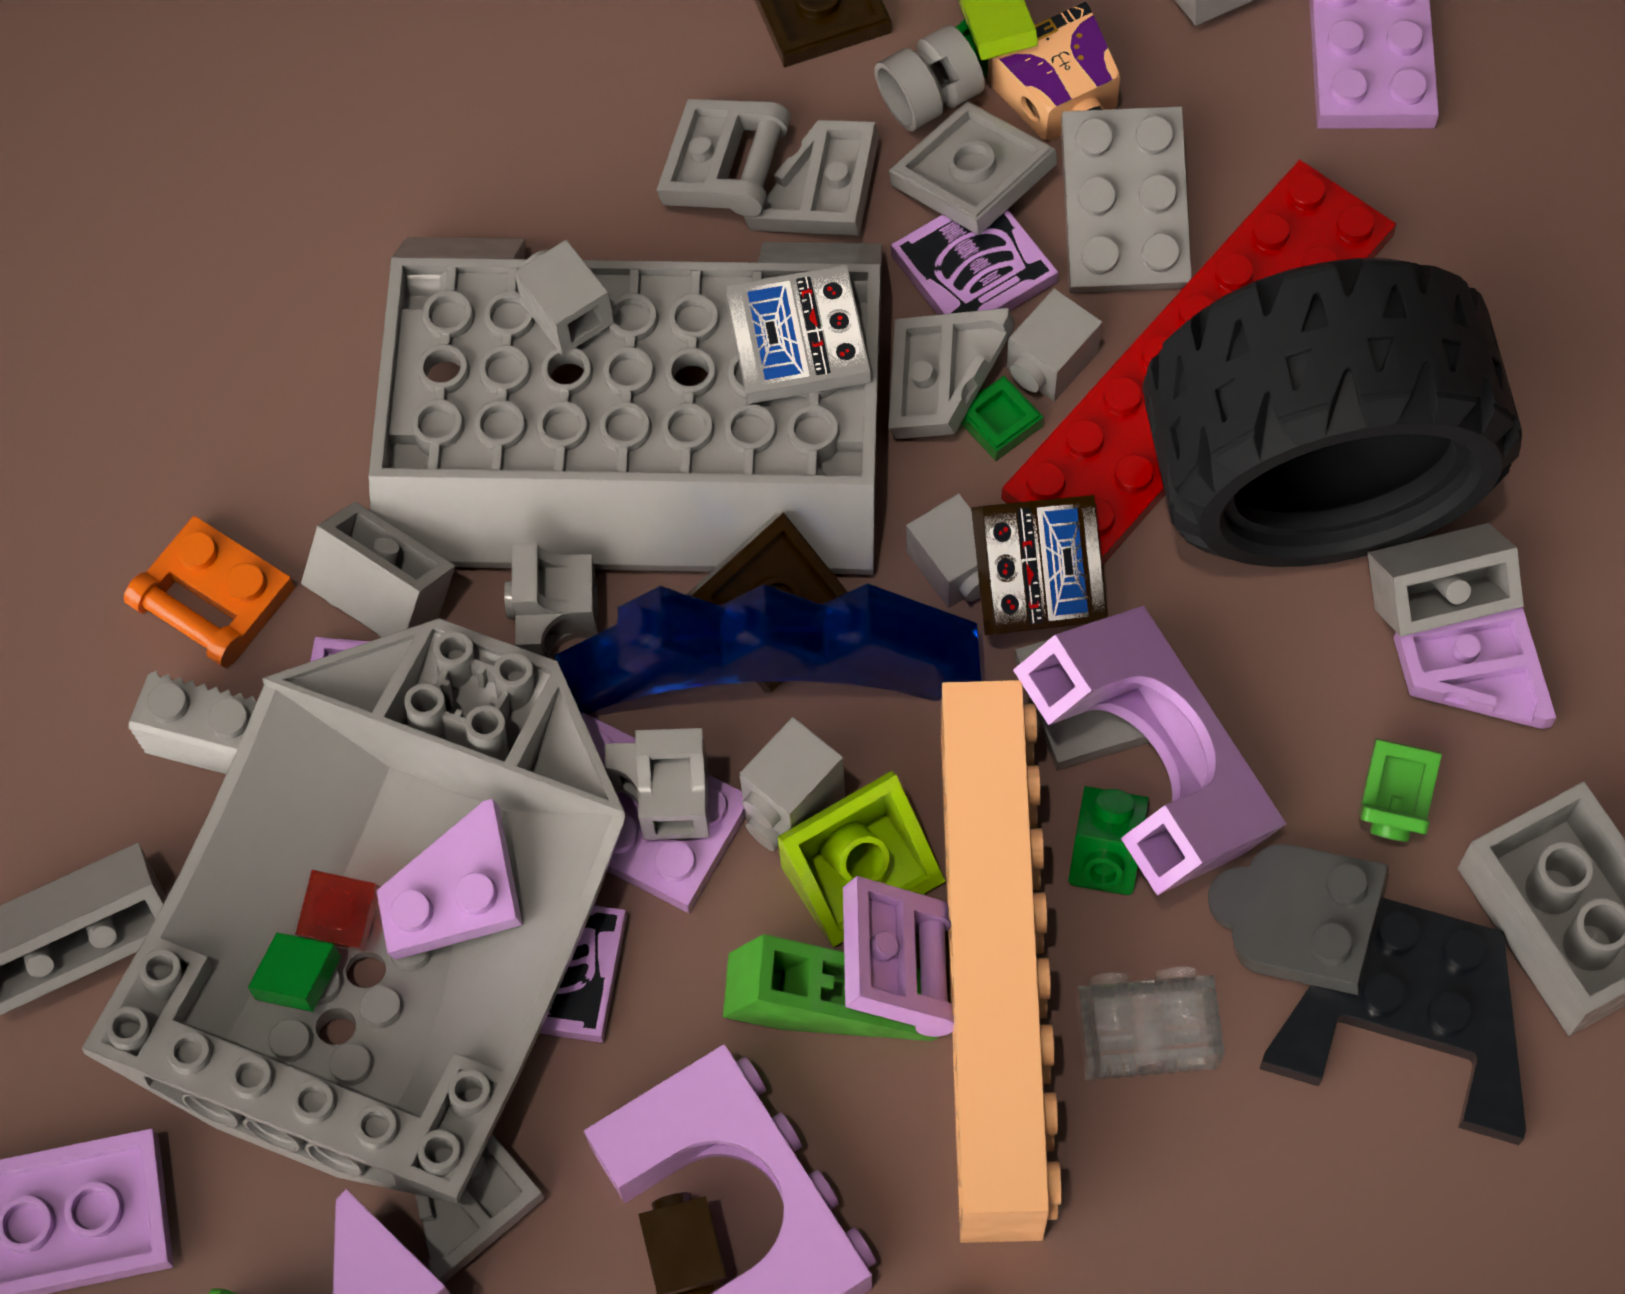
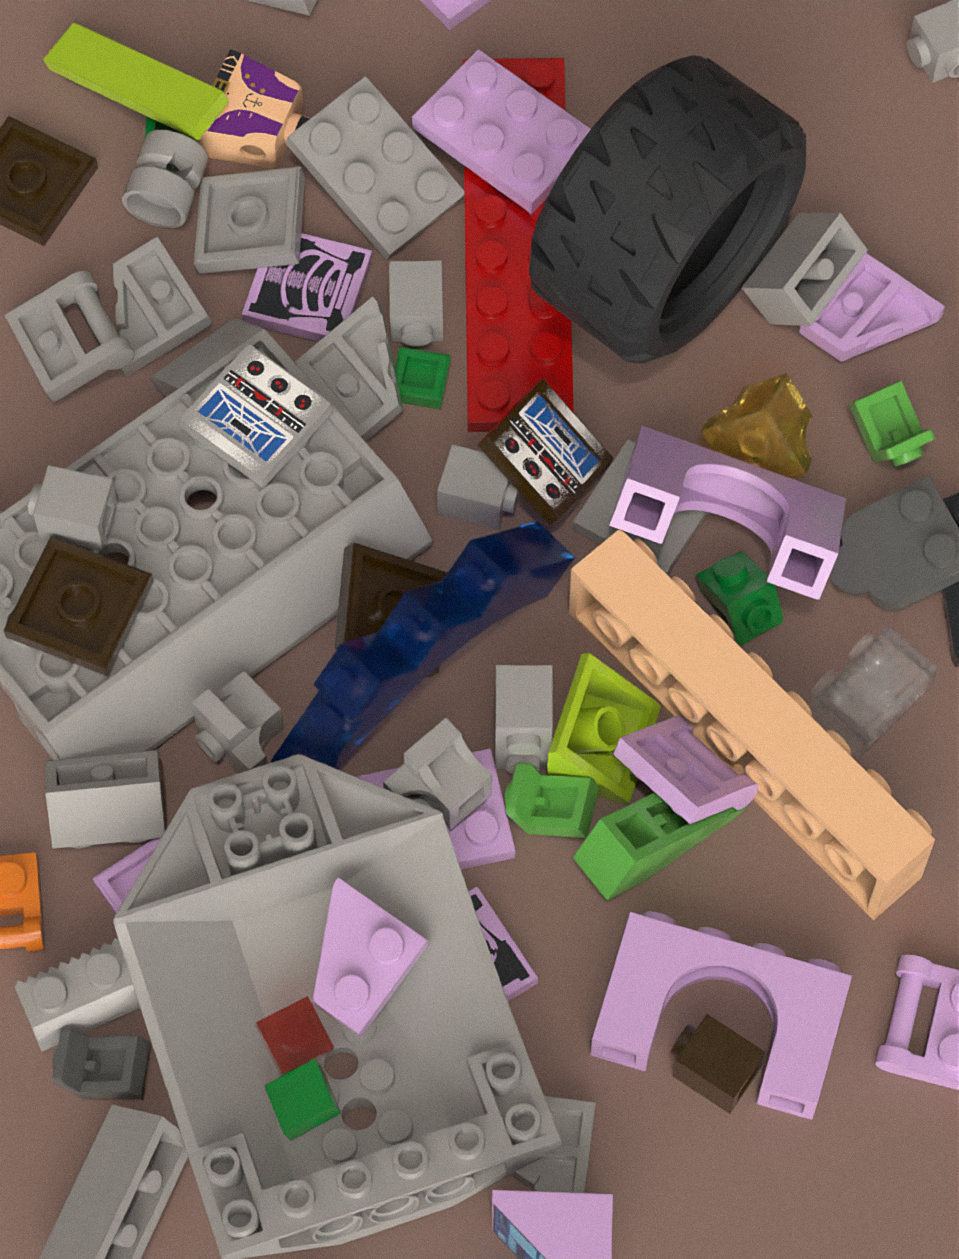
camera: 45 degrees left, 0 degrees up
(164, 798) = (100, 1065): none -> dark grey bracket
(495, 386) = (78, 605): none -> dark brown tile
(755, 885) = (550, 803): none -> bright green bracket
(1263, 220) = (501, 130): none -> lavender plate
(1266, 699) = (764, 427): none -> clear yellow brick

